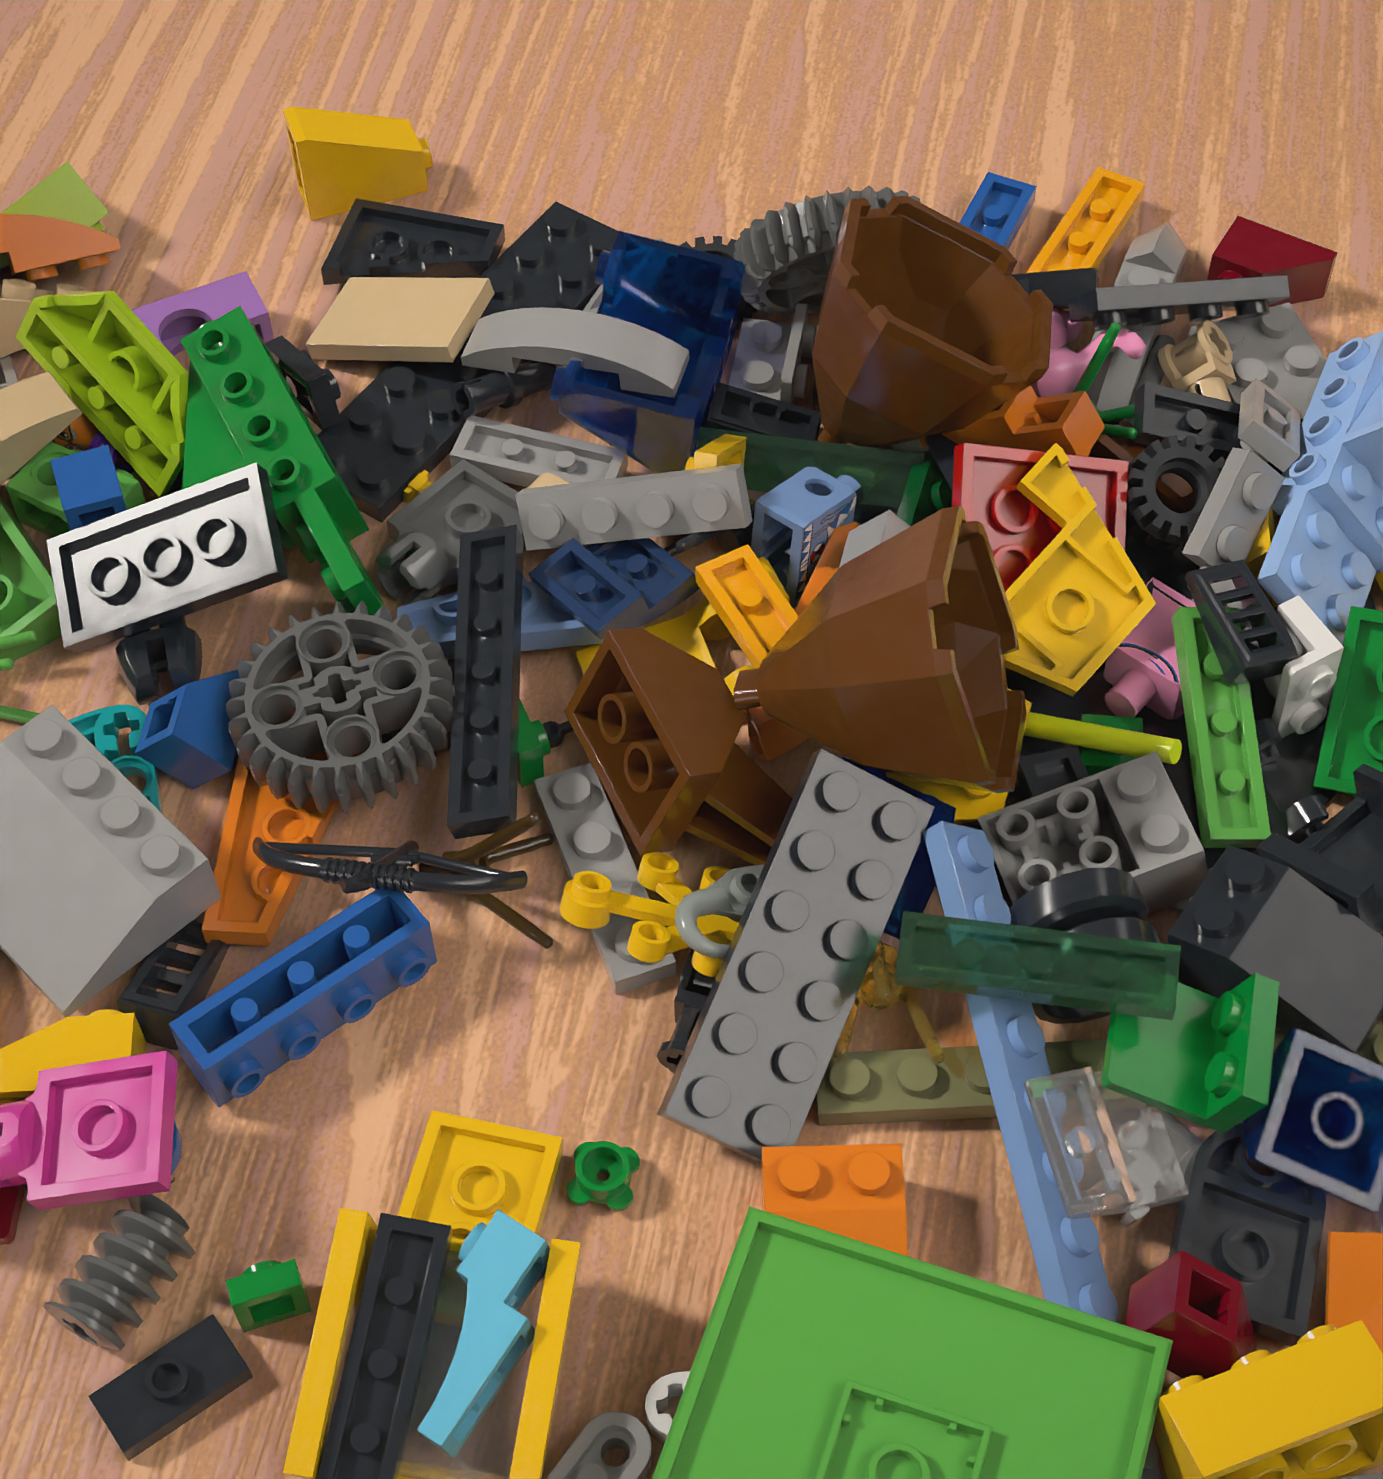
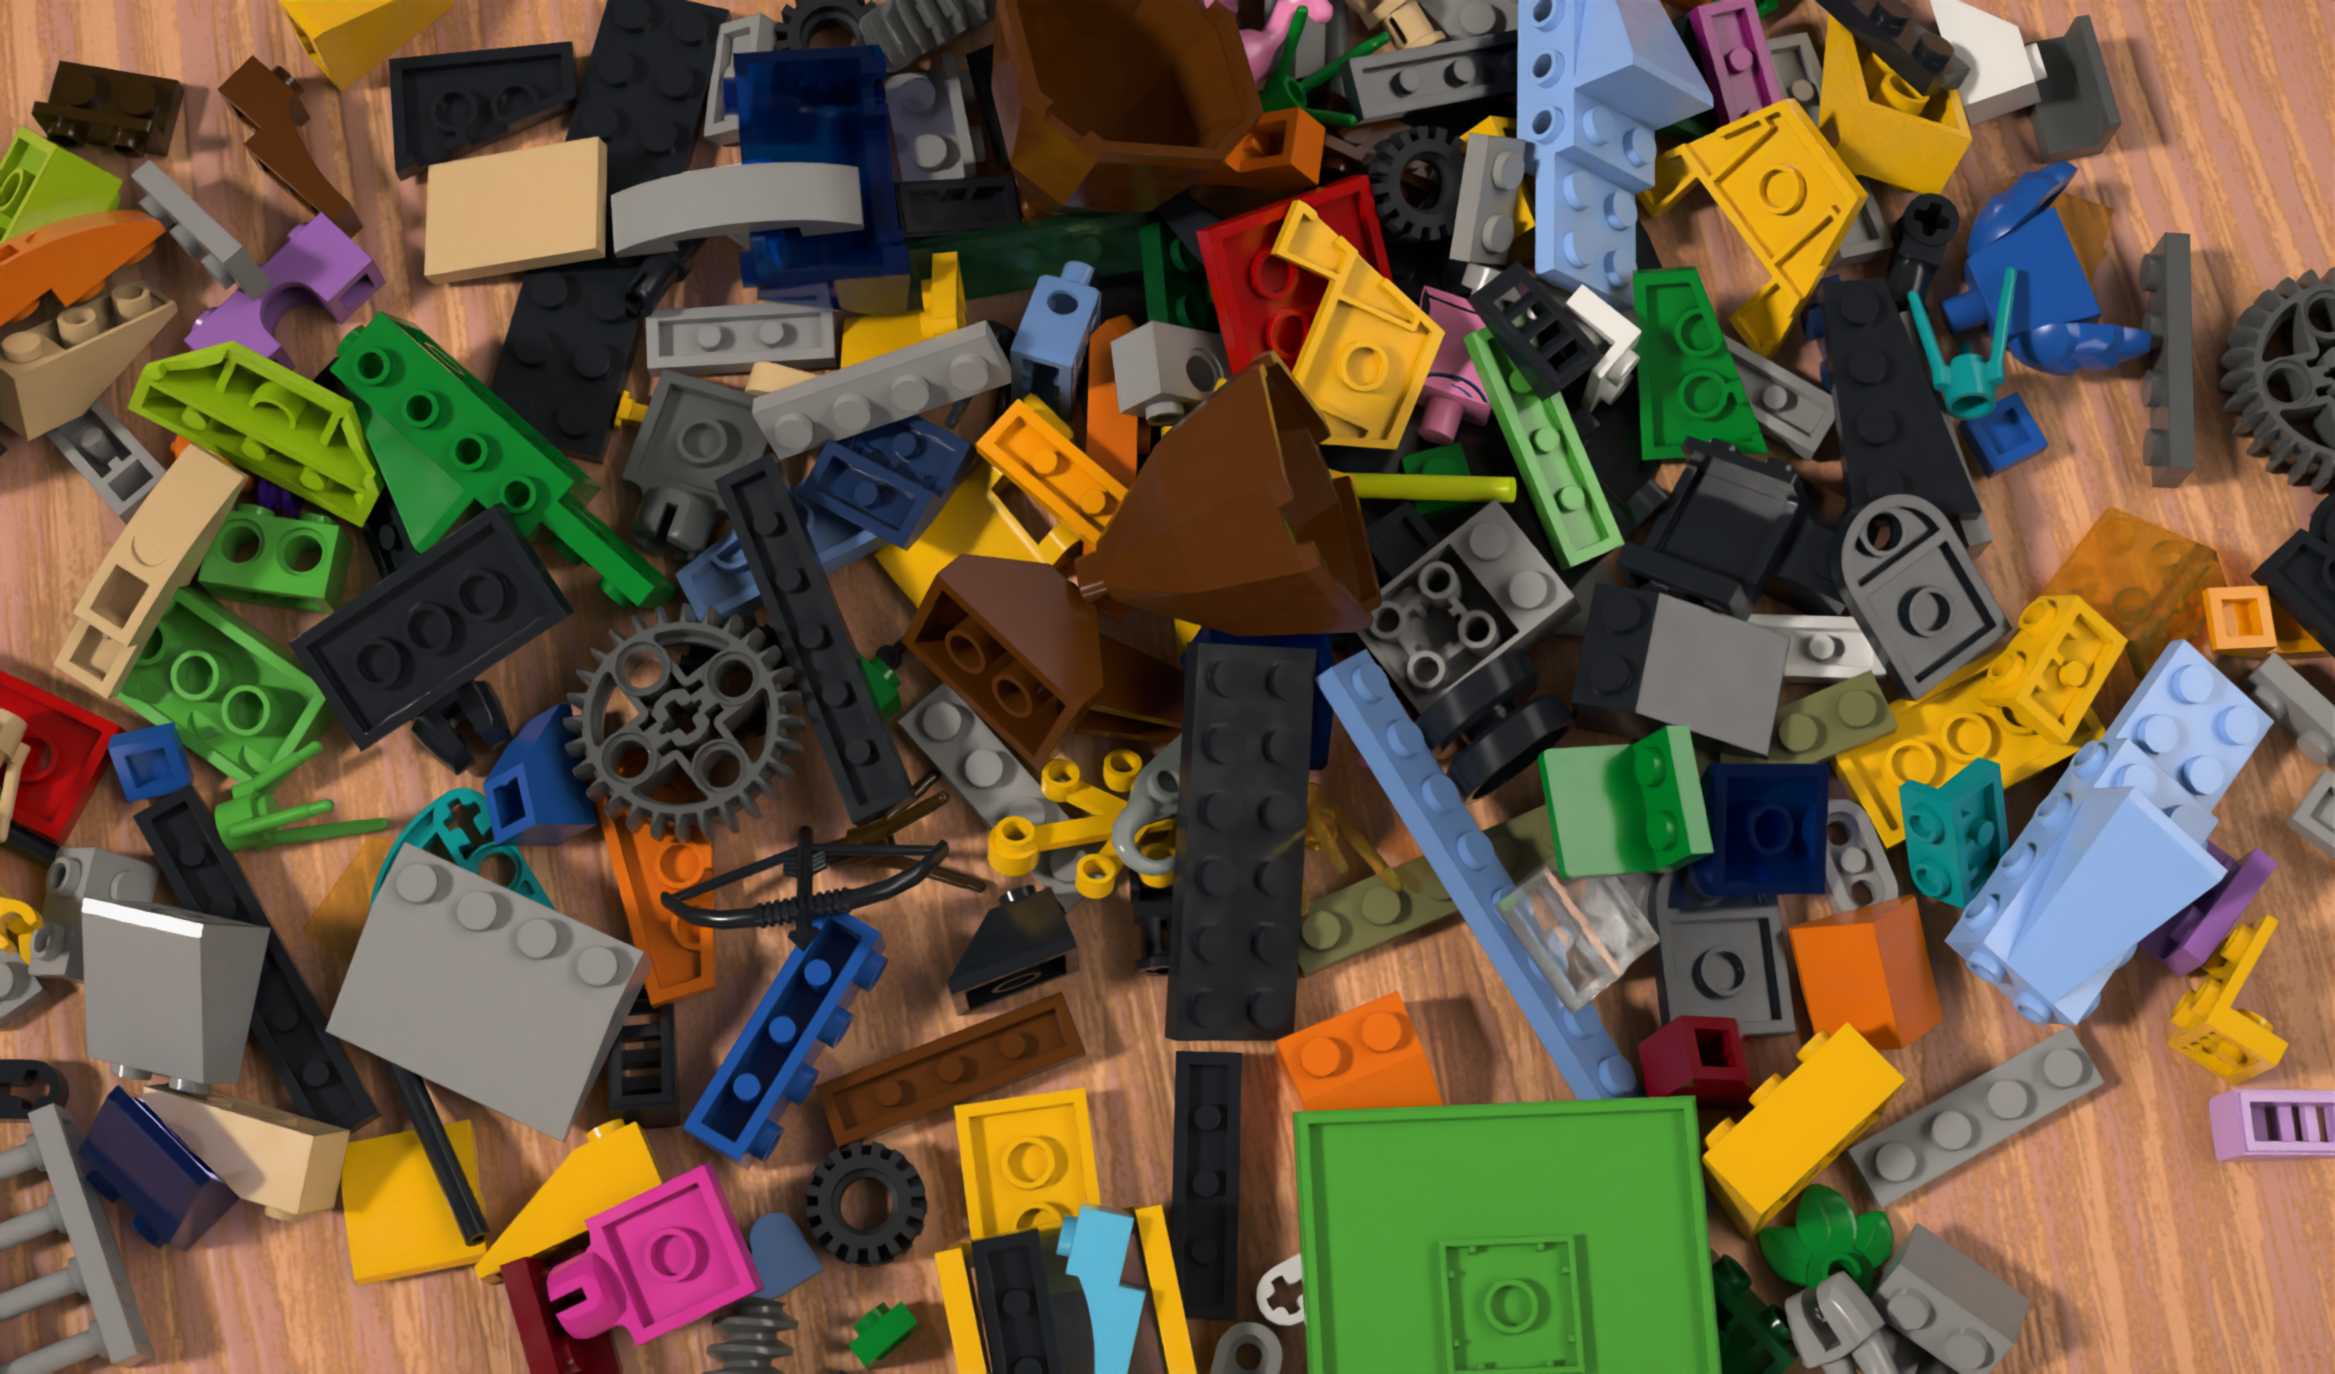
camera: 25 degrees left, 20 degrees up
(88, 486) = (308, 571): blue brick -> none
(132, 180) = (110, 109): none -> dark brown bracket
(145, 258) = (199, 232): none -> light grey plate
(209, 1192) = (781, 1255): none -> medium blue tile
(245, 225) = (272, 110): none -> reddish brown slope
(297, 1138) = (831, 1182): none -> black tyre
(313, 386) = (469, 341): black plate -> none
(451, 1080) = (950, 1070): none -> reddish brown plate
(541, 997) = (1014, 950): none -> black slope
(599, 1157) = (1141, 1088): green plate -> none
(640, 1275) = (1206, 1182): none -> black plate
(1038, 965) = (1471, 791): clear green plate -> none
(1269, 425) = (1489, 72): light grey plate -> none

